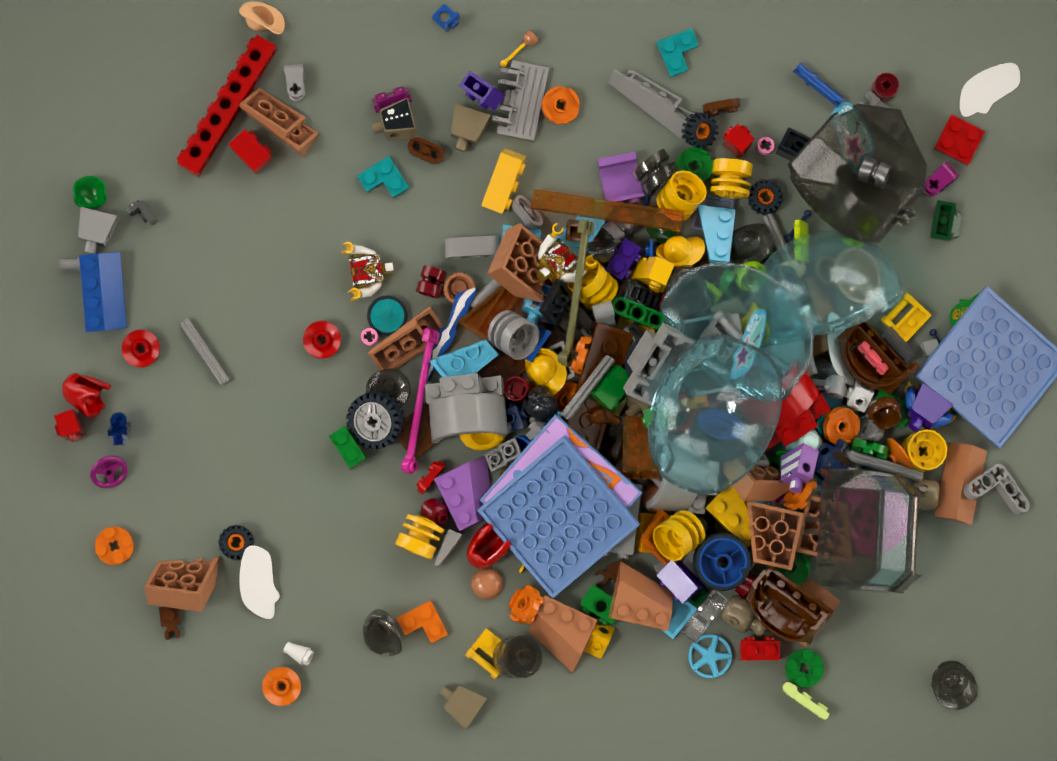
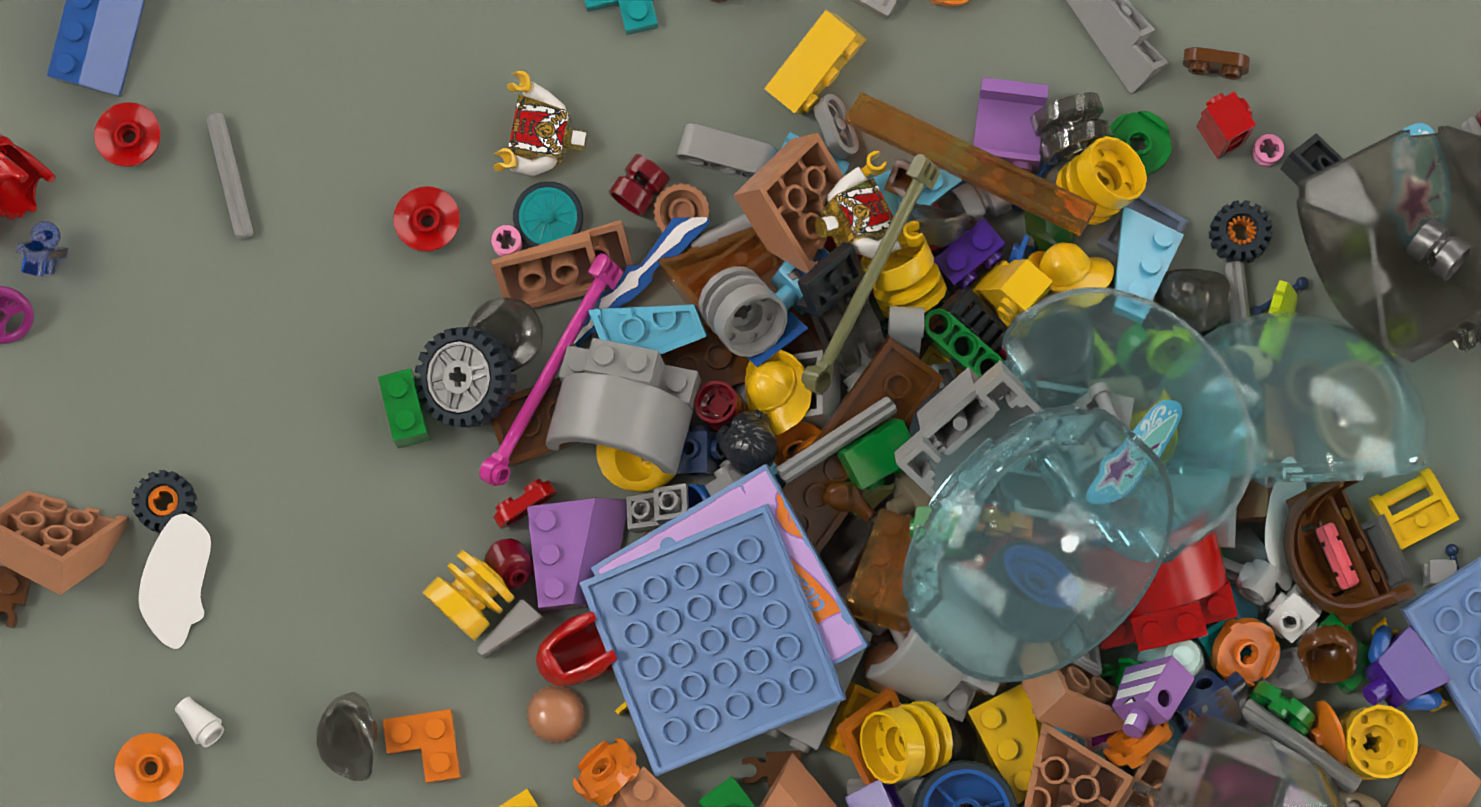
camera: 20 degrees right, 5 degrees down
(581, 357) = (849, 375): orange plate -> none
(691, 130) = (1153, 82): black bush -> none
(731, 175) = (1194, 180): yellow wheel -> none
(819, 85) = (1381, 69): blue pin -> none

